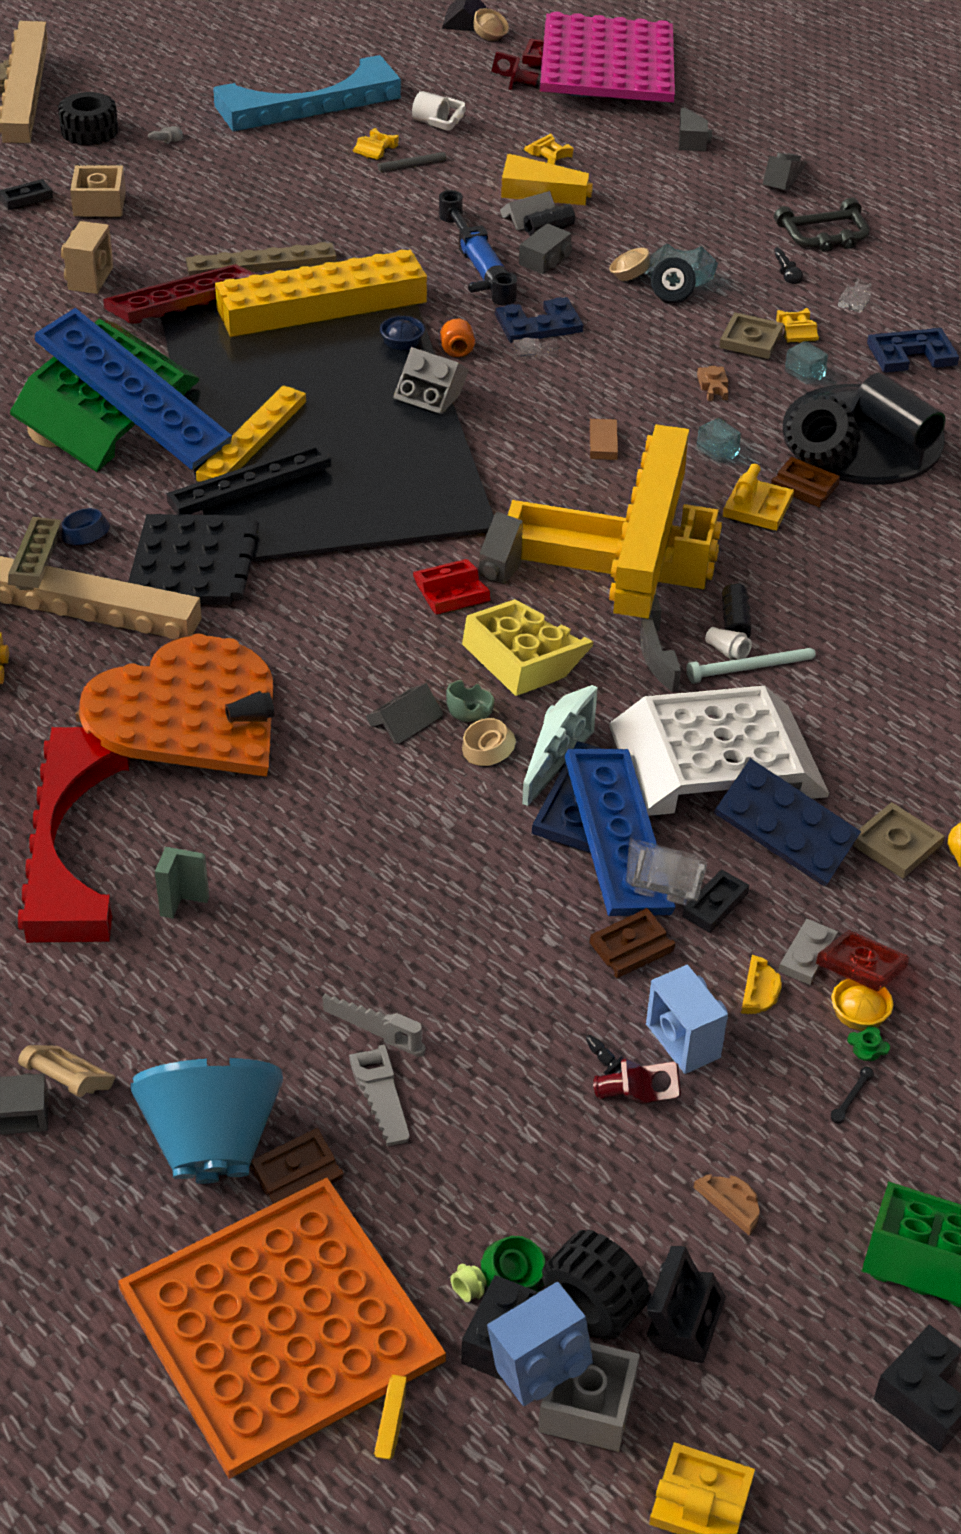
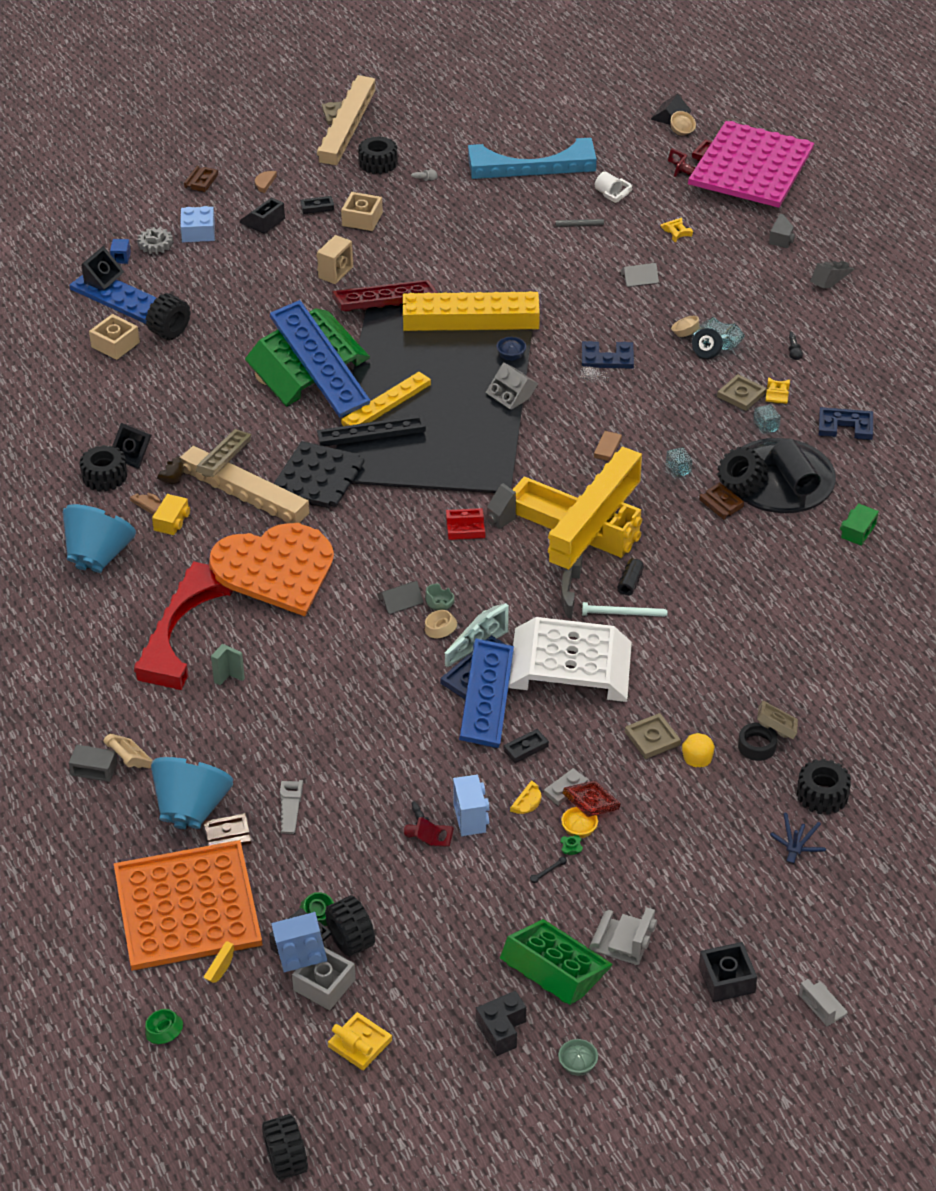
camera: 20 degrees right, 0 degrees up
(84, 526) = (263, 441): dark blue hat -> none
(252, 708) = (307, 574): black cone -> none
(264, 260) = (449, 279): dark tan plate -> none
(375, 144) = (559, 206): yellow piece -> none
(388, 1027) = (310, 771): light grey piece -> none
(457, 338) = (545, 358): orange head -> none
(468, 1282) = (289, 908): yellowish green plate -> none
(475, 245) = (590, 298): black piece -> none
(522, 646) = (486, 570): light yellow wedge -> none
(530, 177) = (651, 249): yellow slope -> none
(545, 248) = (635, 304): dark grey brick -> none
(558, 216) = (649, 283): black axle -> none
(632, 943) = (465, 758): reddish brown plate -> none
(664, 871) = (498, 721): clear slope -> none
(684, 1307) = (394, 949): black brick -> none
(713, 380) = (700, 420): medium nougat plate -> none
(730, 643) = (616, 595): white cone -> none
(732, 1198) = (452, 905): medium nougat tile -> none
(757, 501) = (683, 507): yellow plate -> none
(787, 822) = (586, 710): dark blue plate -> none
(849, 209) = (862, 312): pearl dark grey bar -> none
(855, 297) = (828, 378): clear plate -> none

